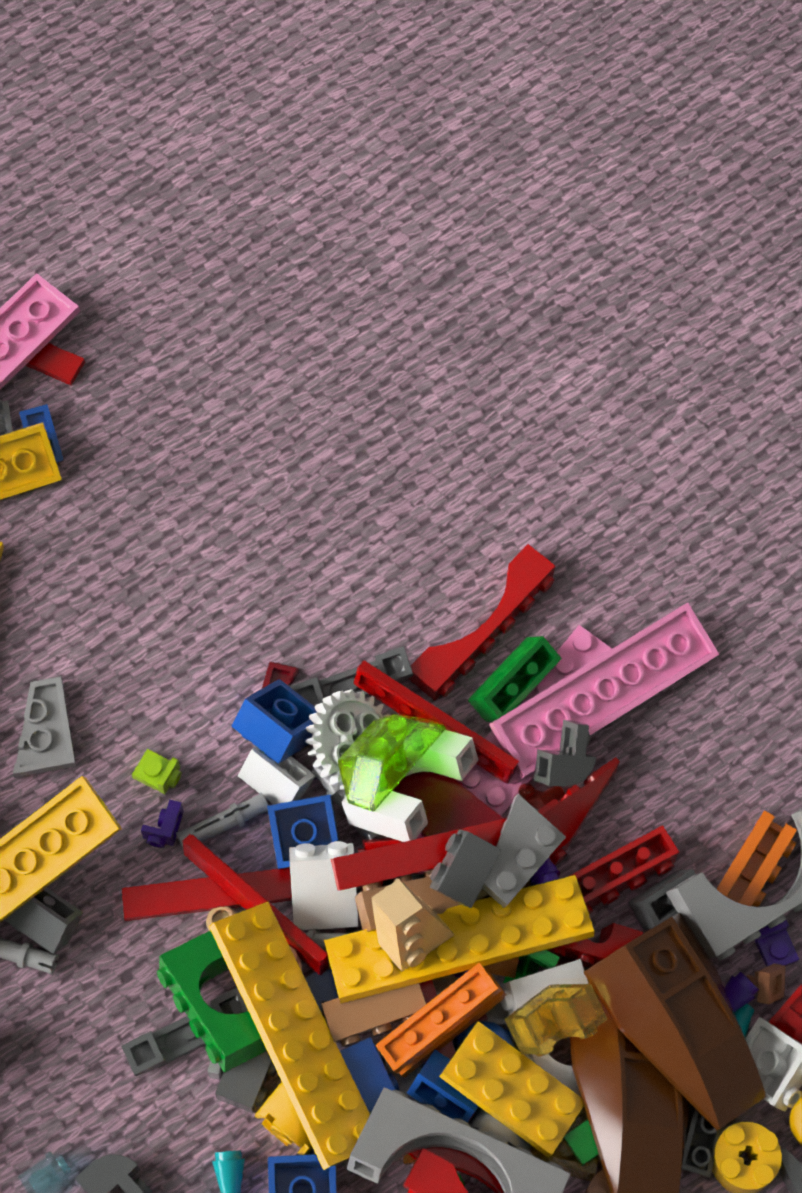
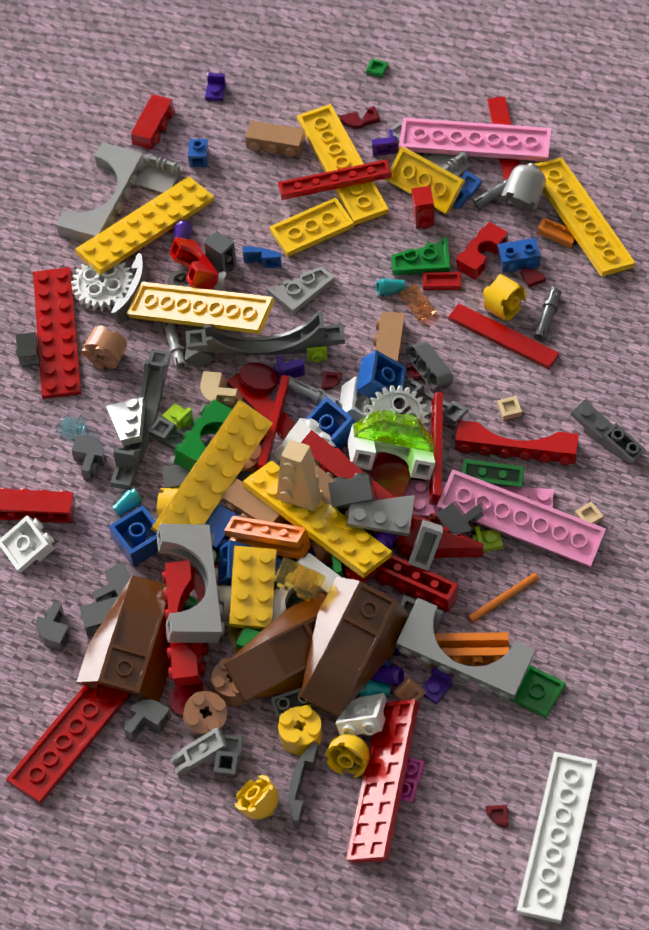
camera: 65 degrees right, 10 degrees down
(41, 499) = (422, 207): none -> red brick
(78, 406) = (490, 196): none -> dark grey pin
(100, 1091) = (128, 420): none -> wing
(108, 360) = (525, 186): none -> light grey cylinder
(115, 552) = (425, 259): none -> green wing
(125, 1089) = (129, 456): none -> dark grey slope
(126, 621) = (389, 286): none -> teal cone
(130, 946) = (214, 387): none -> tan brick
(133, 788) = (308, 335): none -> dark grey slope
(135, 1018) = (179, 416): none -> lime bracket
(152, 874) = (258, 378): none -> dark red tile
(163, 552) = (441, 280): none -> red tile
(165, 497) = (470, 260): none -> red arch
(178, 603) = (417, 303): none -> clear orange slope
(193, 329) = (584, 219): none -> yellow plate
(196, 373) = (555, 232): none -> orange plate
(199, 437) = (519, 255): none -> blue brick
(213, 672) = (390, 334): none -> medium nougat brick
(218, 784) = (331, 379): none -> dark red tile
(240, 444) = (532, 277): none -> dark red tile
(257, 496) = (504, 297): none -> yellow brick
(291, 649) = (429, 365): none -> dark grey beam
(304, 454) = (549, 307): none -> dark grey pin
(304, 535) = (503, 336): none -> red tile
(422, 597) = (509, 408): none -> tan plate
(544, 512) = (606, 434): none -> dark grey slope
(587, 827) = (425, 545): none -> light grey brick
(603, 746) = (490, 539): none -> lime bracket
(643, 609) = (589, 513): none -> tan plate
(694, 784) = (503, 597): none -> orange bar

